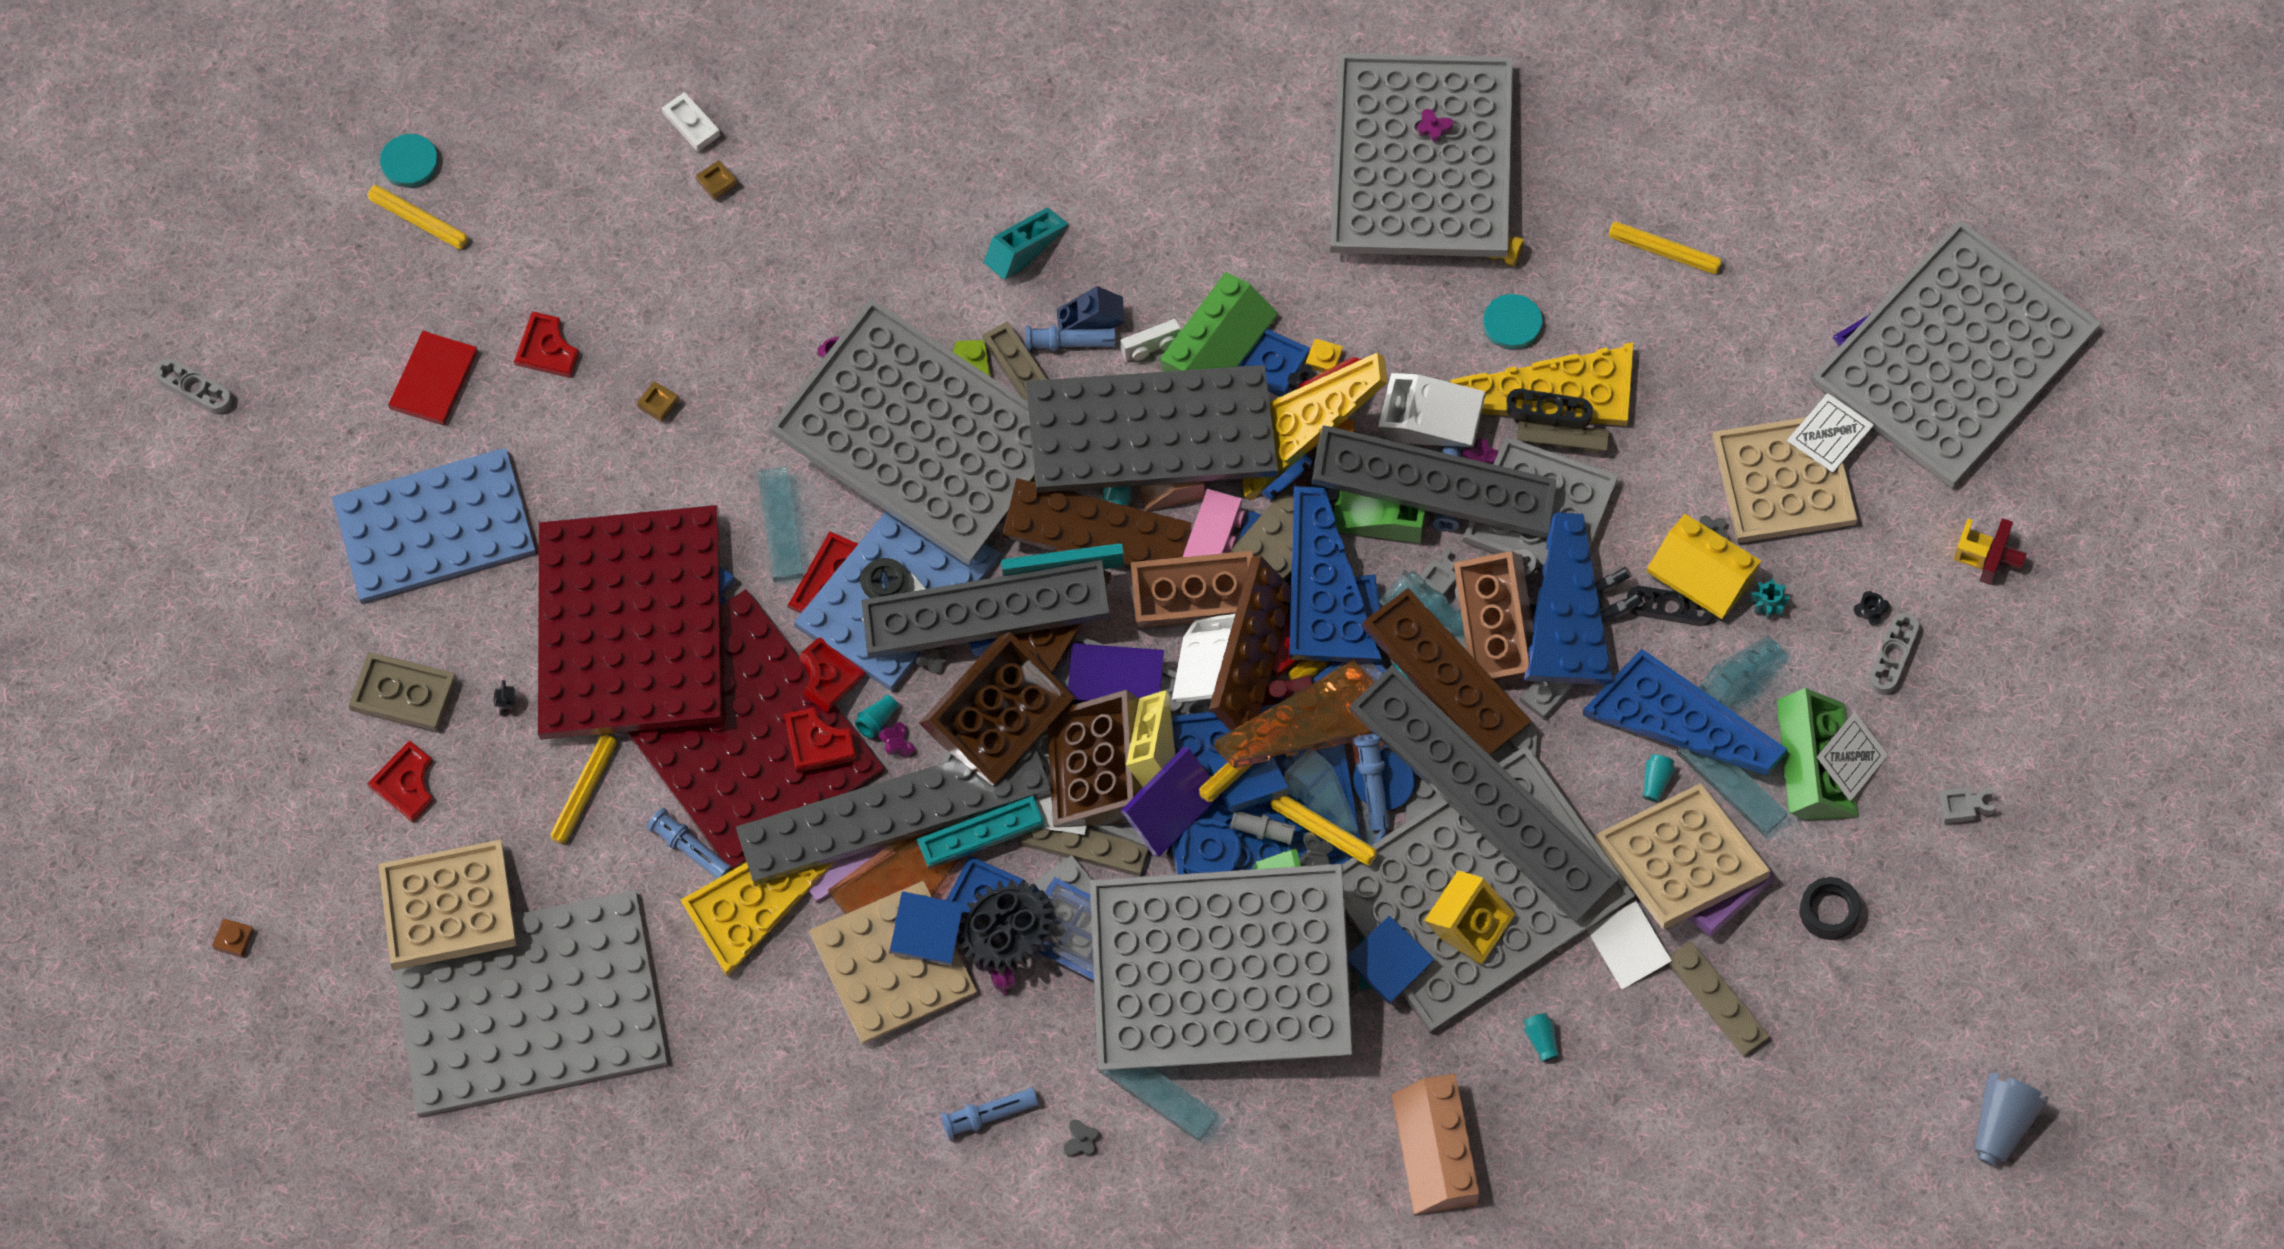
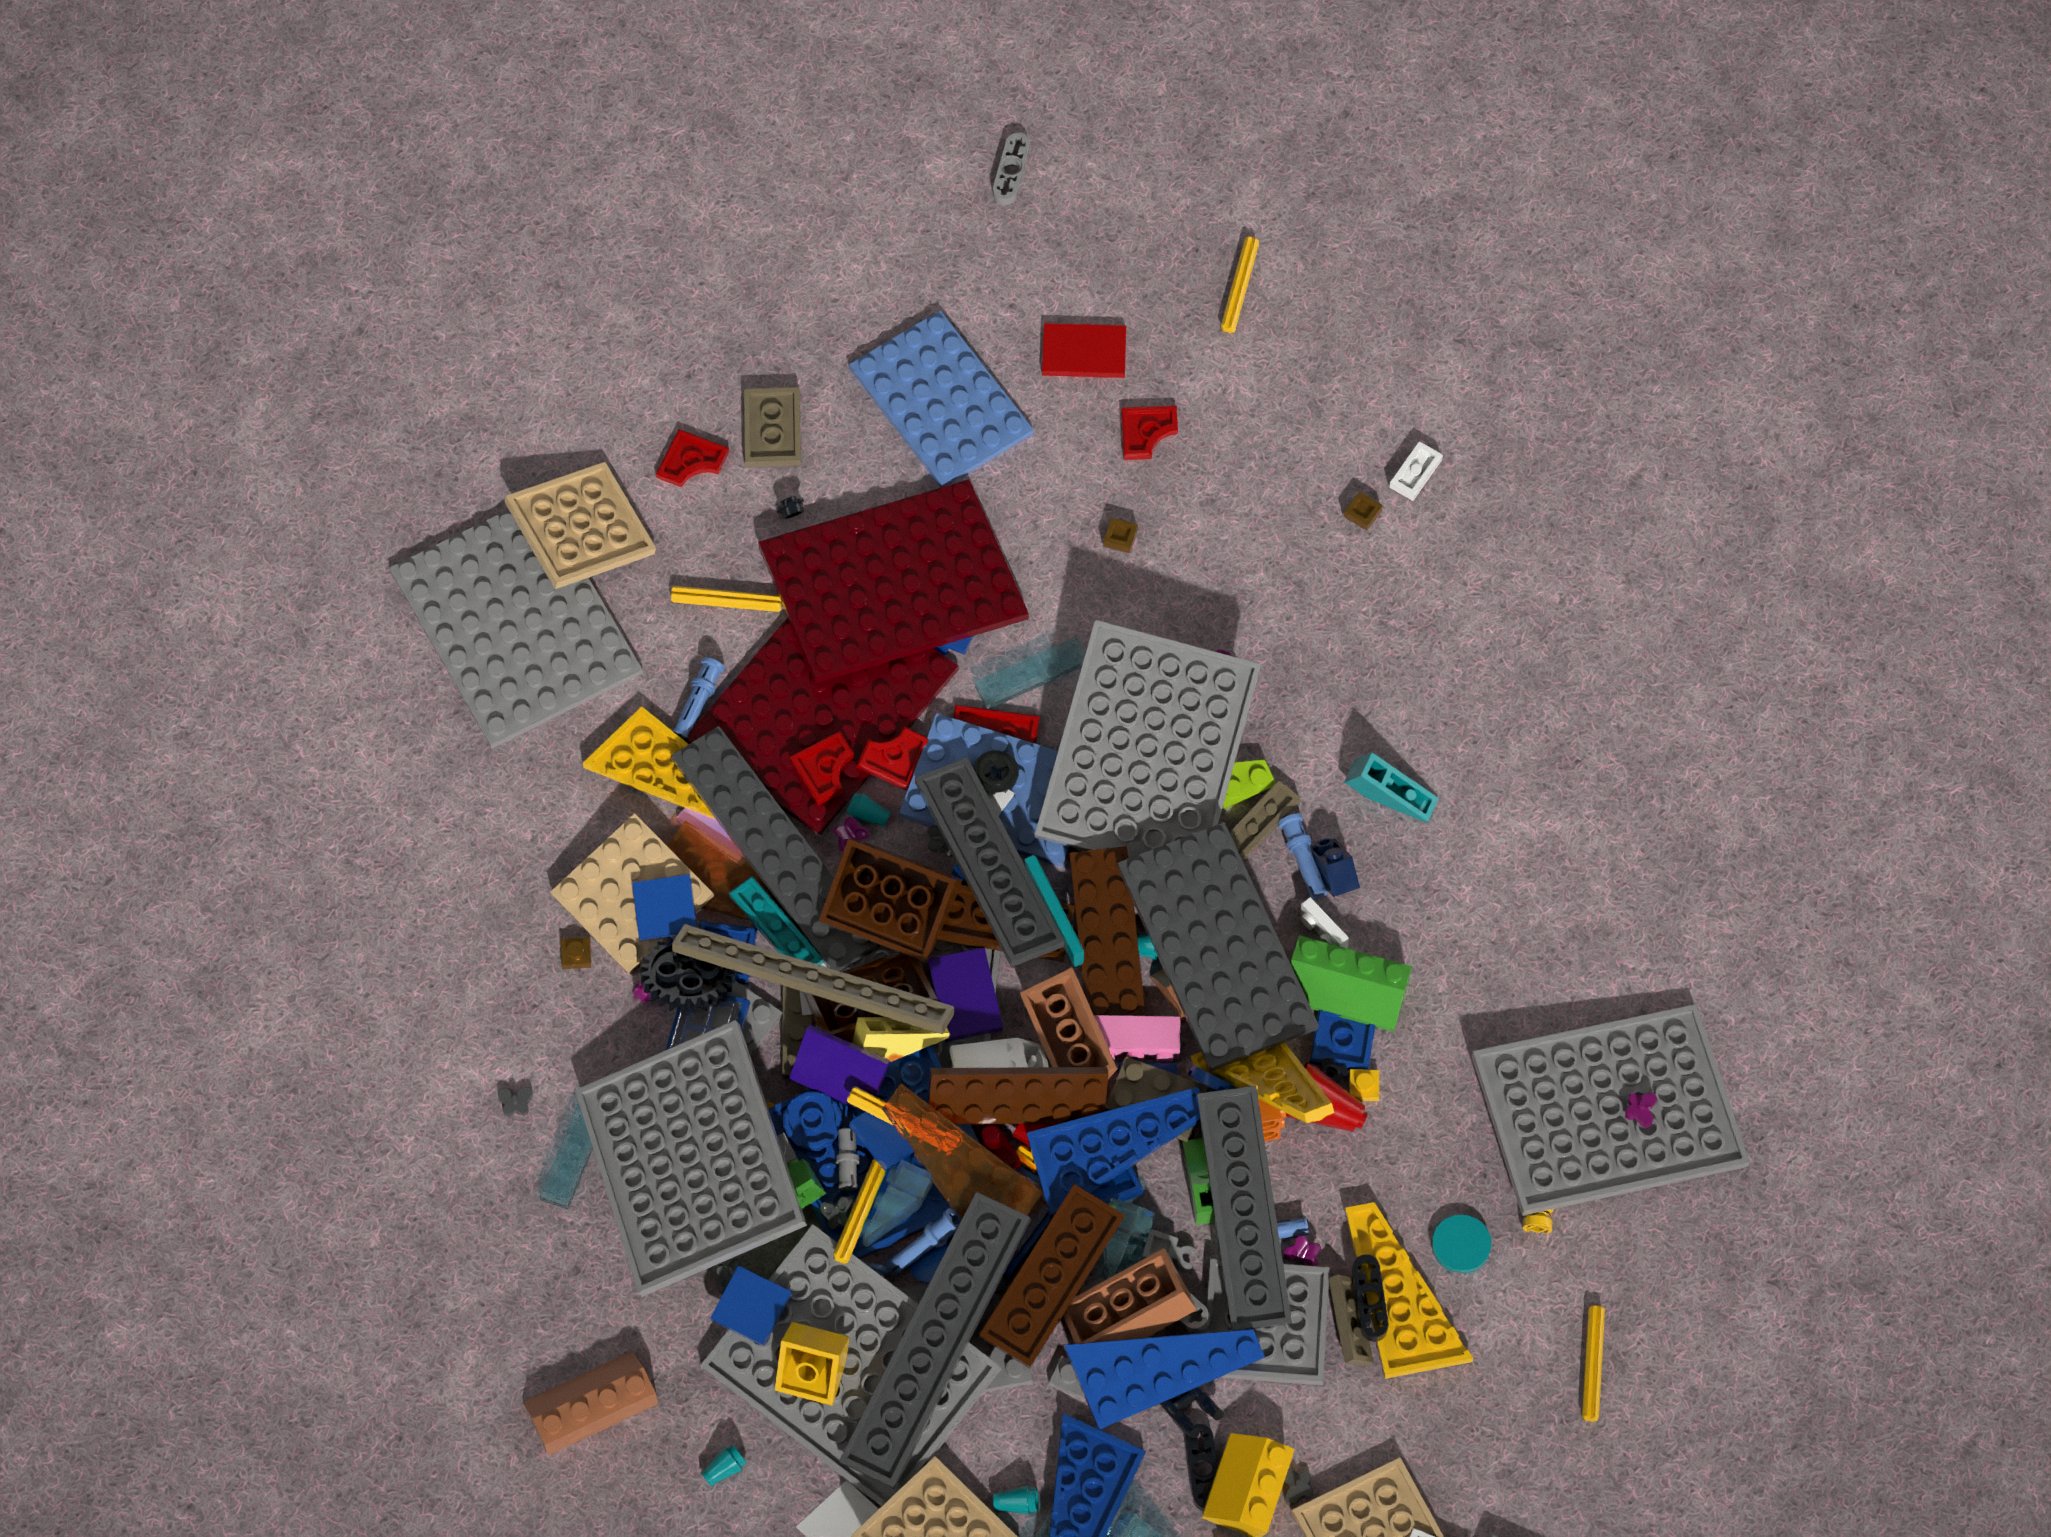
camera: 70 degrees right, 0 degrees up
(233, 938) = (508, 376): dark orange plate -> none
(409, 160) = (1294, 258): teal tile -> none
(935, 1038) = (576, 953): none -> pearl gold plate
(972, 1114) = (512, 1003): medium blue pin -> none
(1065, 799) = (813, 979): none -> dark tan plate
(1430, 411) = (1326, 1189): white slope -> none

